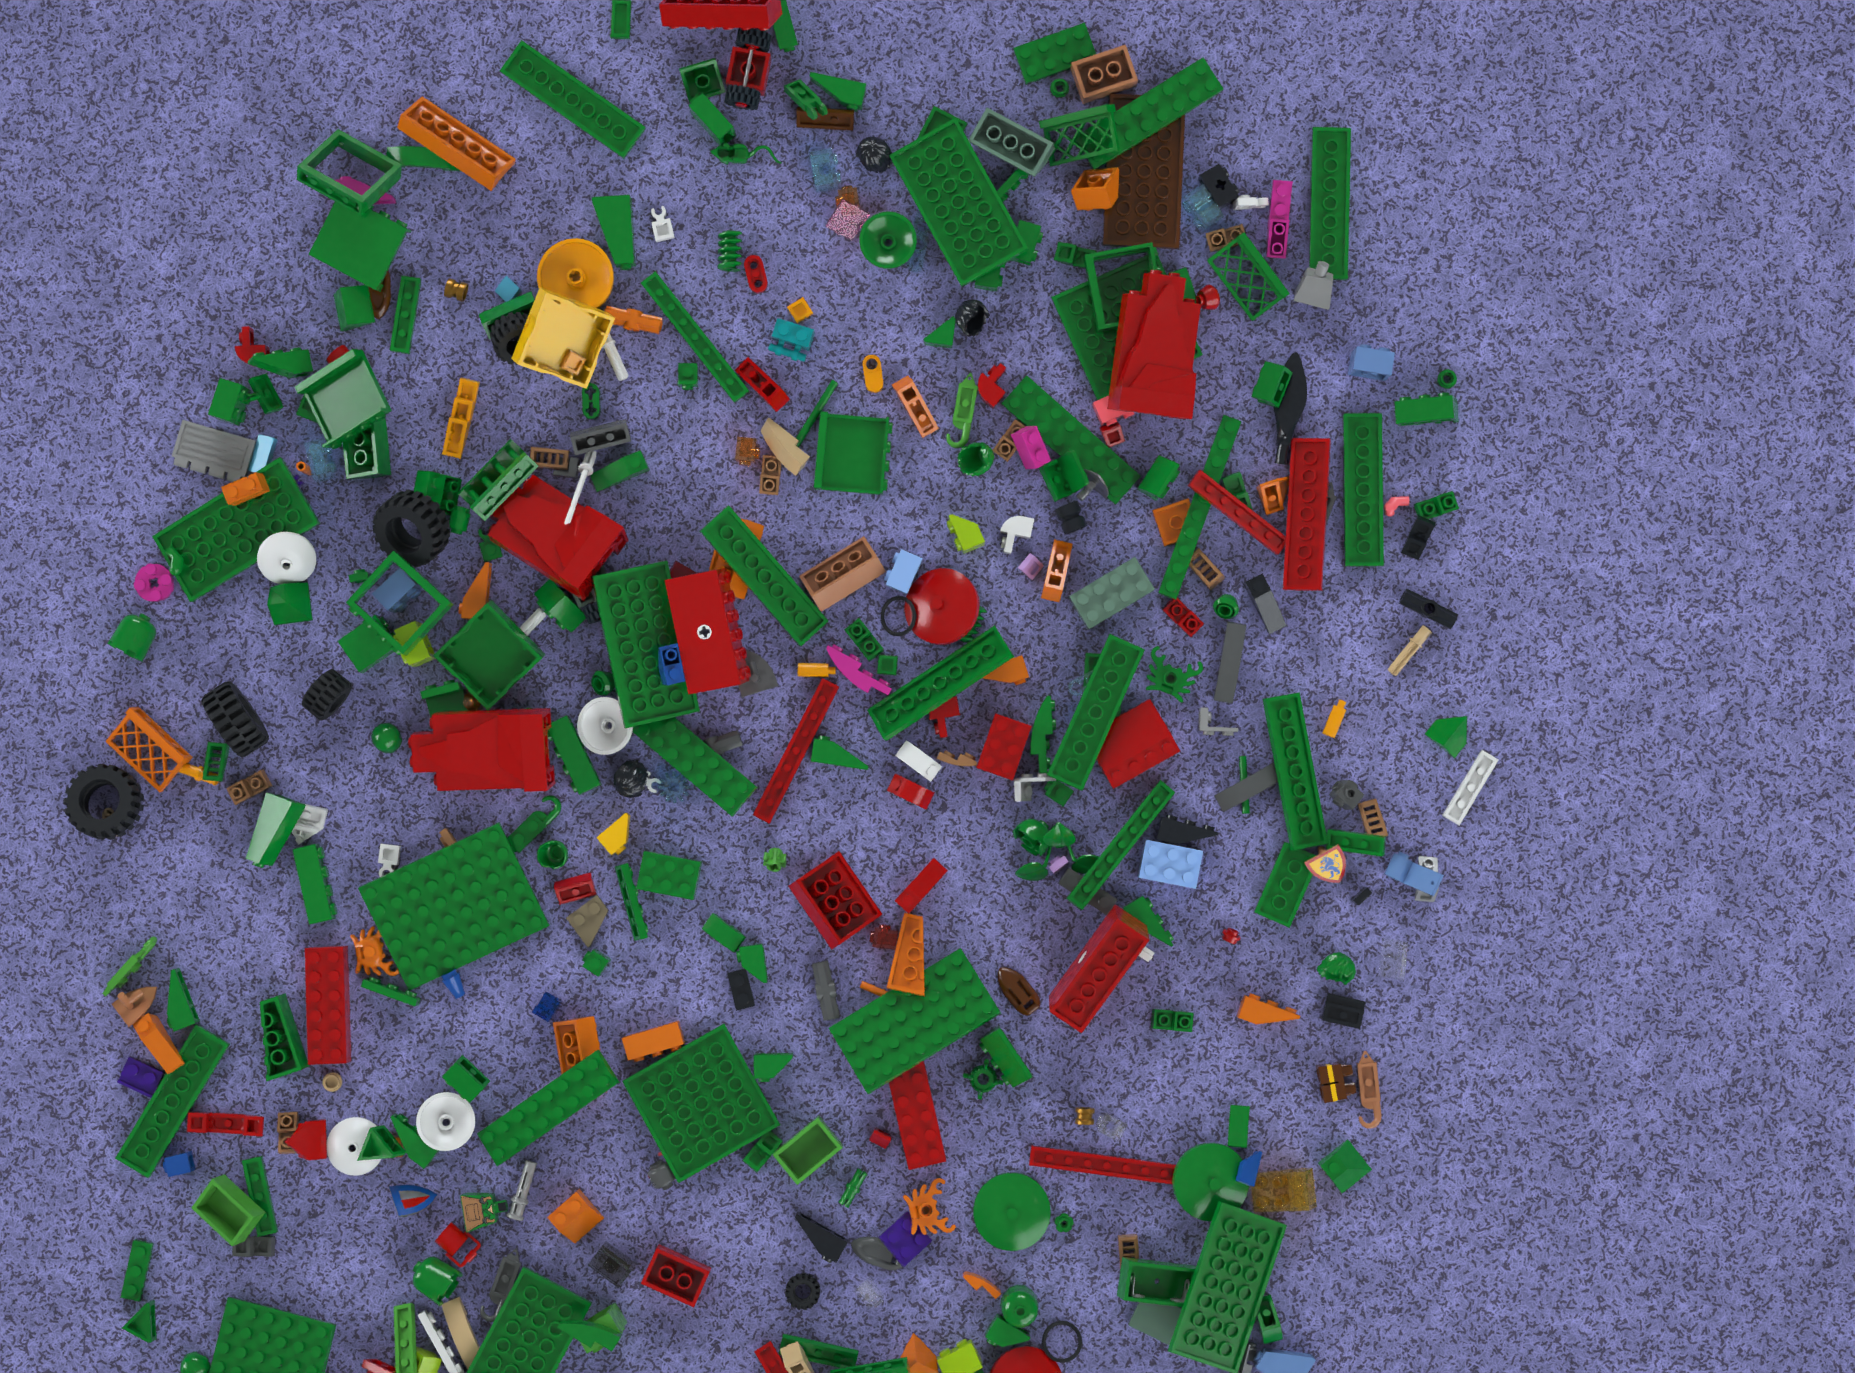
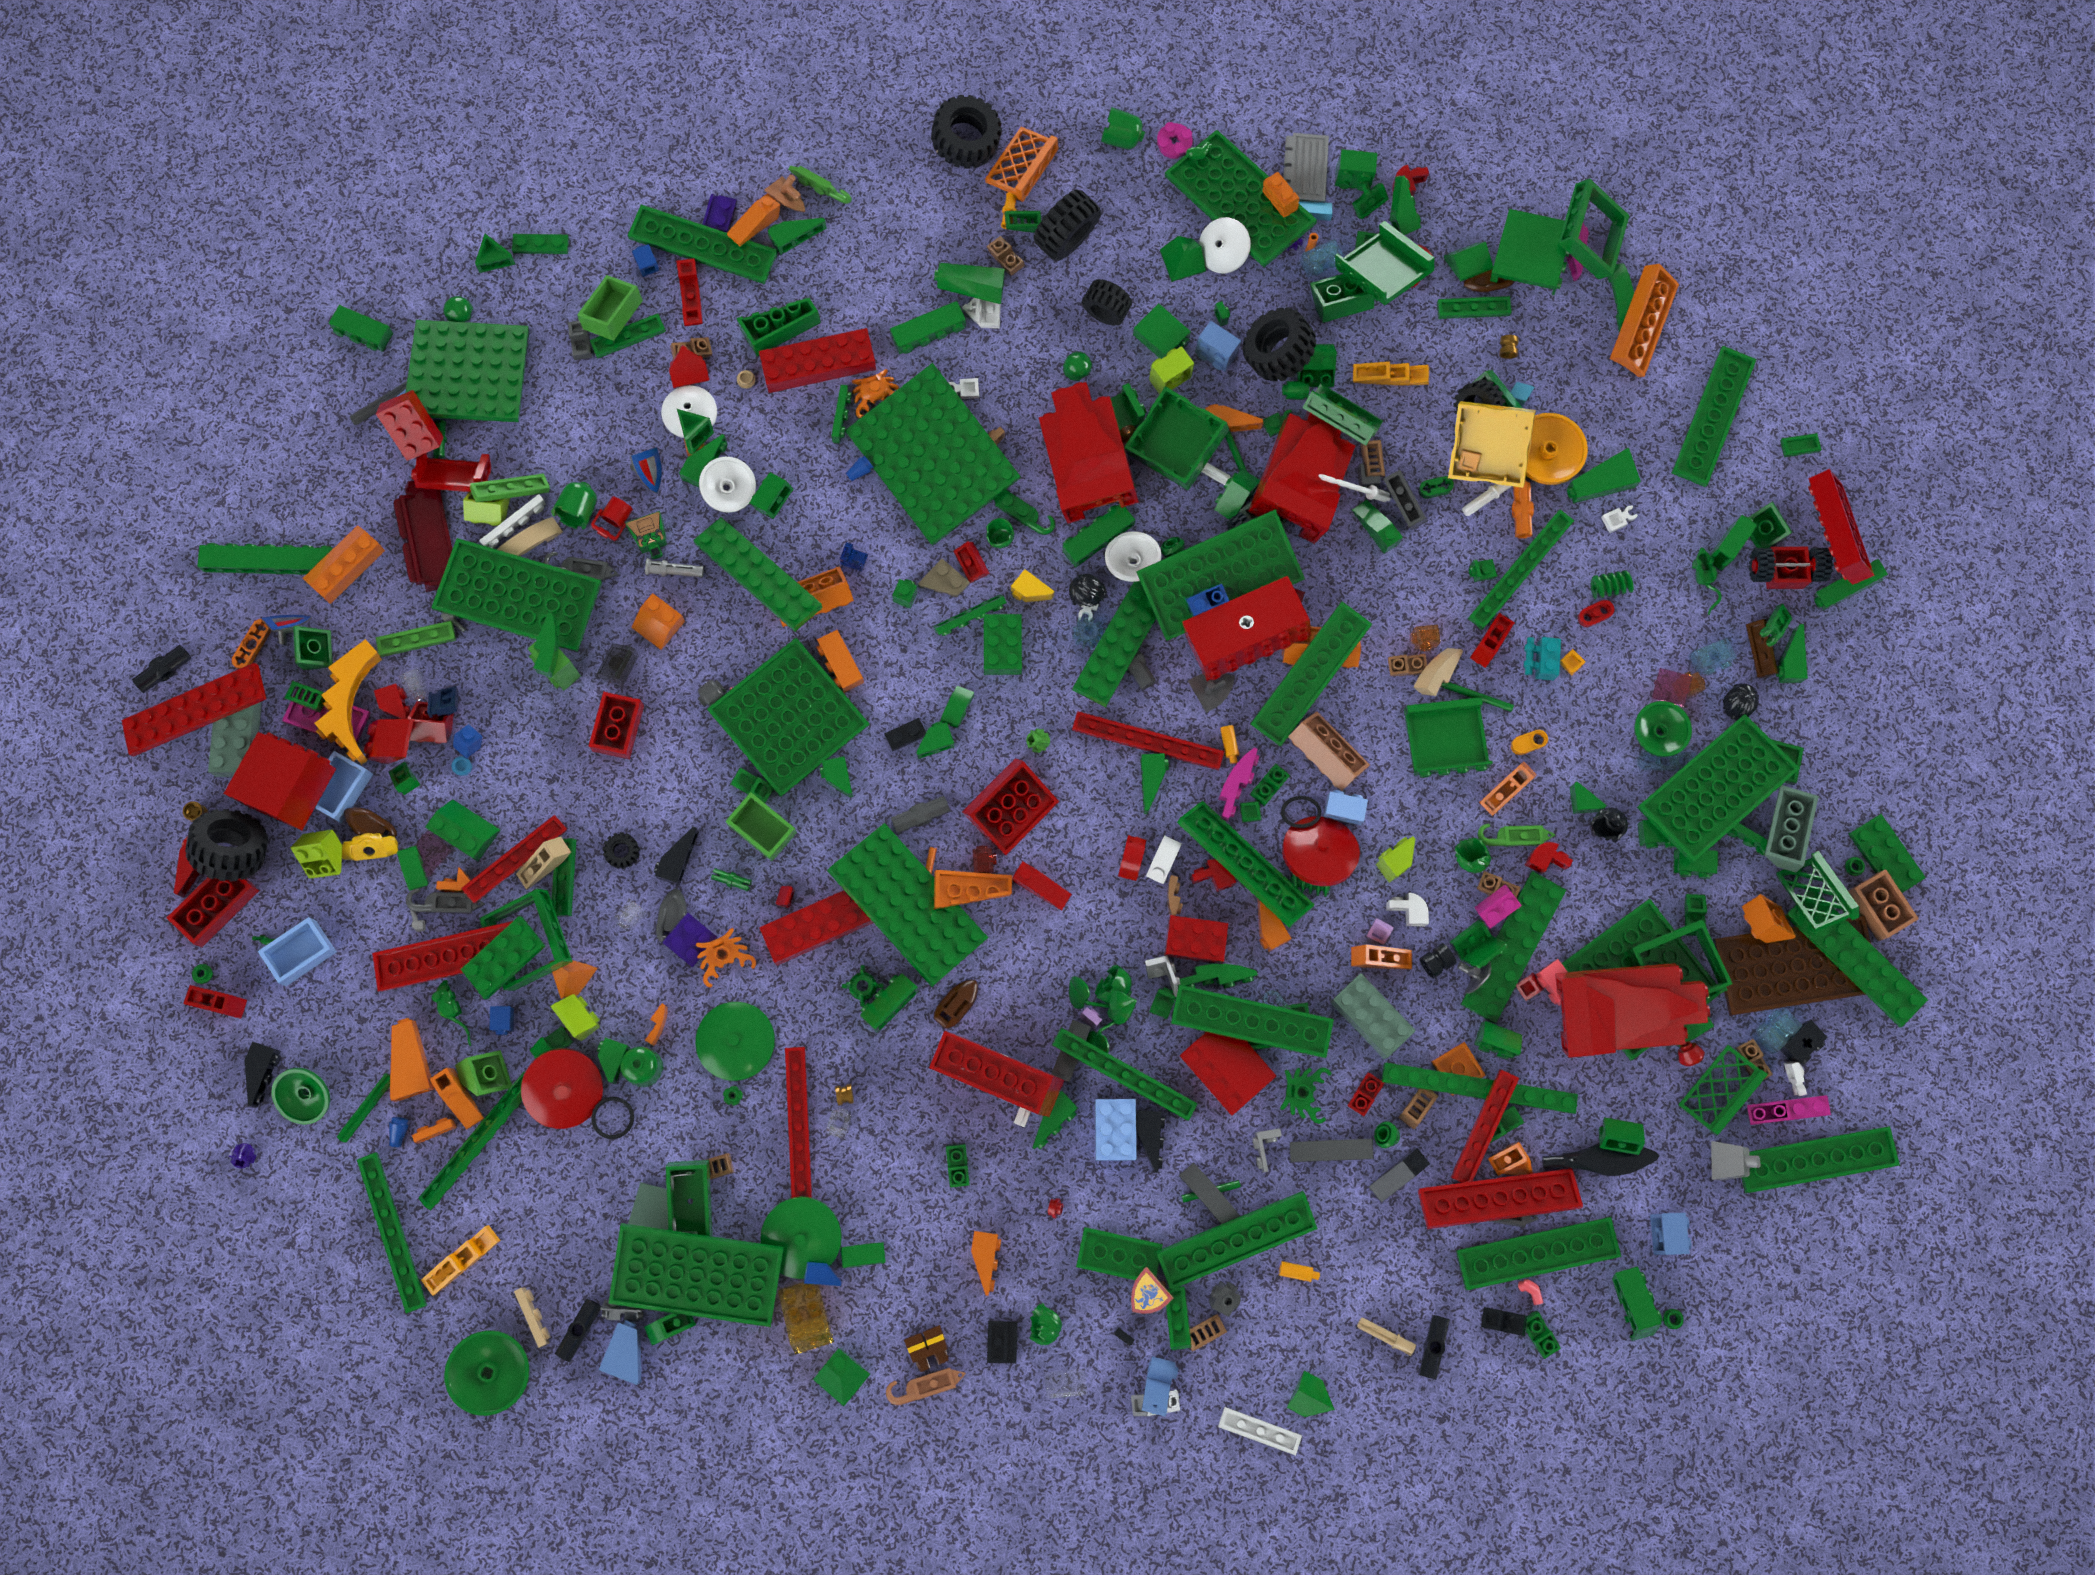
camera: 70 degrees right, 10 degrees down
(445, 604) = (1193, 372): green window -> none
(513, 596) = (1235, 452): none -> green bar

